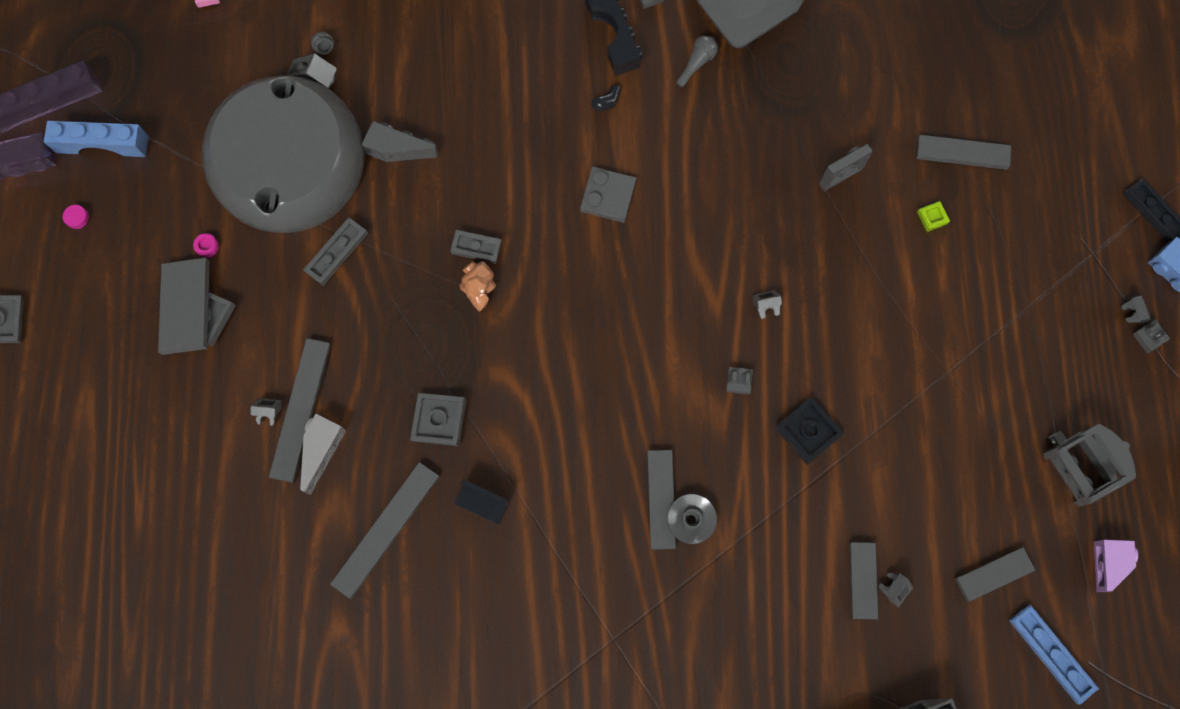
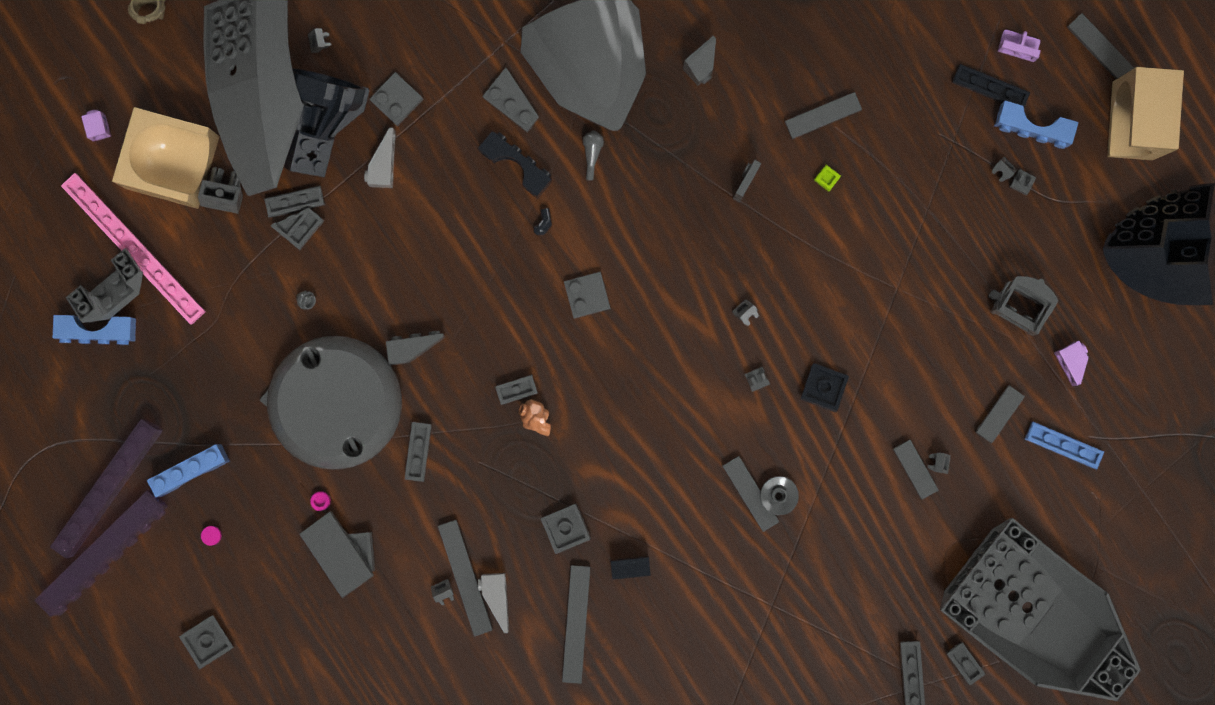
camera: 35 degrees left, 10 degrees up
(313, 68) = (312, 328): slope -> none
(862, 27) = (700, 64): none -> dark grey slope

